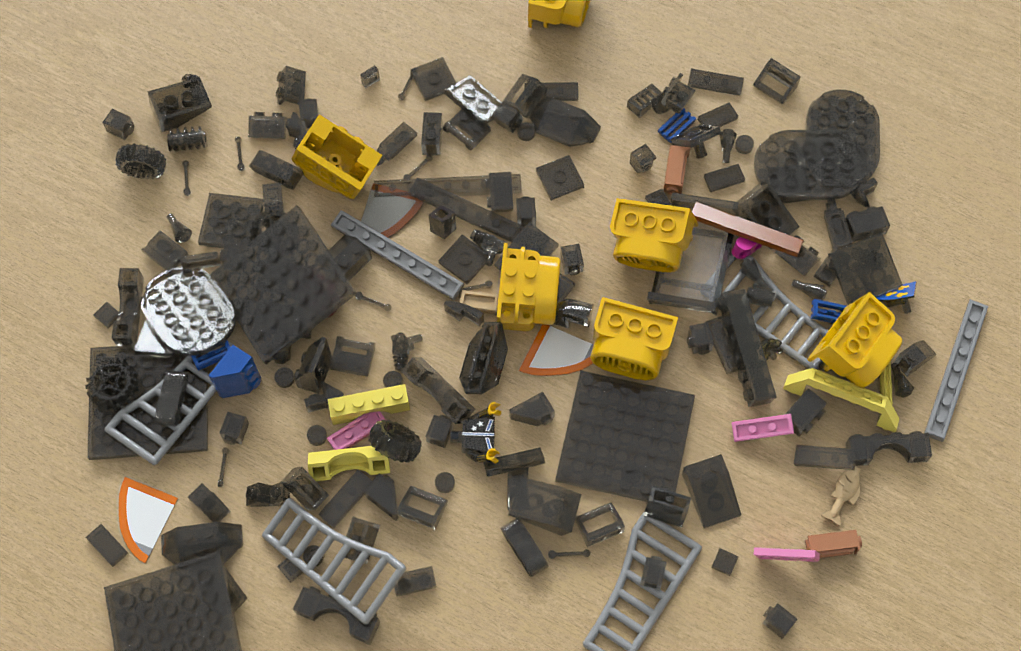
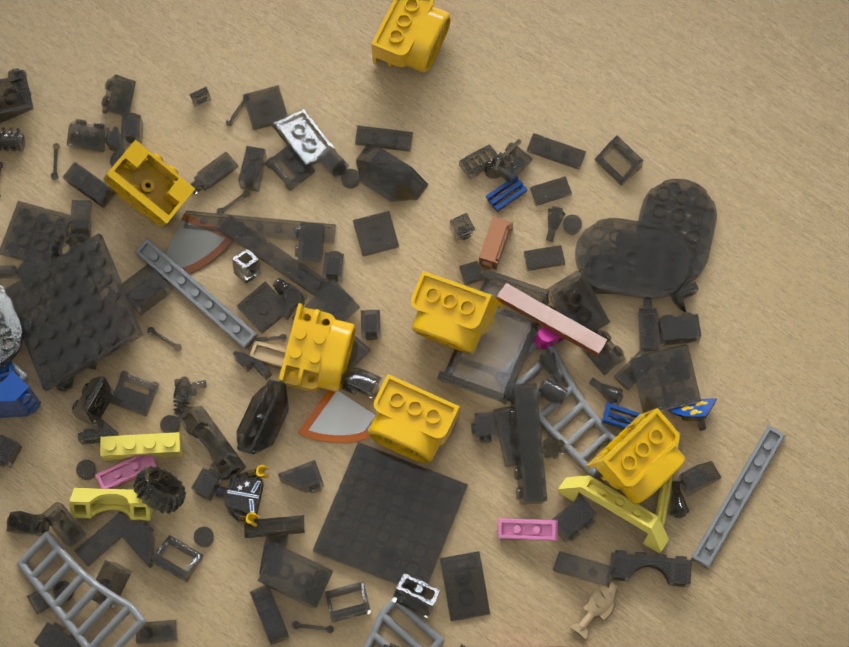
camera: 10 degrees right, 5 degrees up
(284, 377) = (63, 405): clear smoke tile -> none
(530, 96) = (358, 143): clear smoke tile -> none
(695, 138) = (521, 211): clear smoke tile -> none

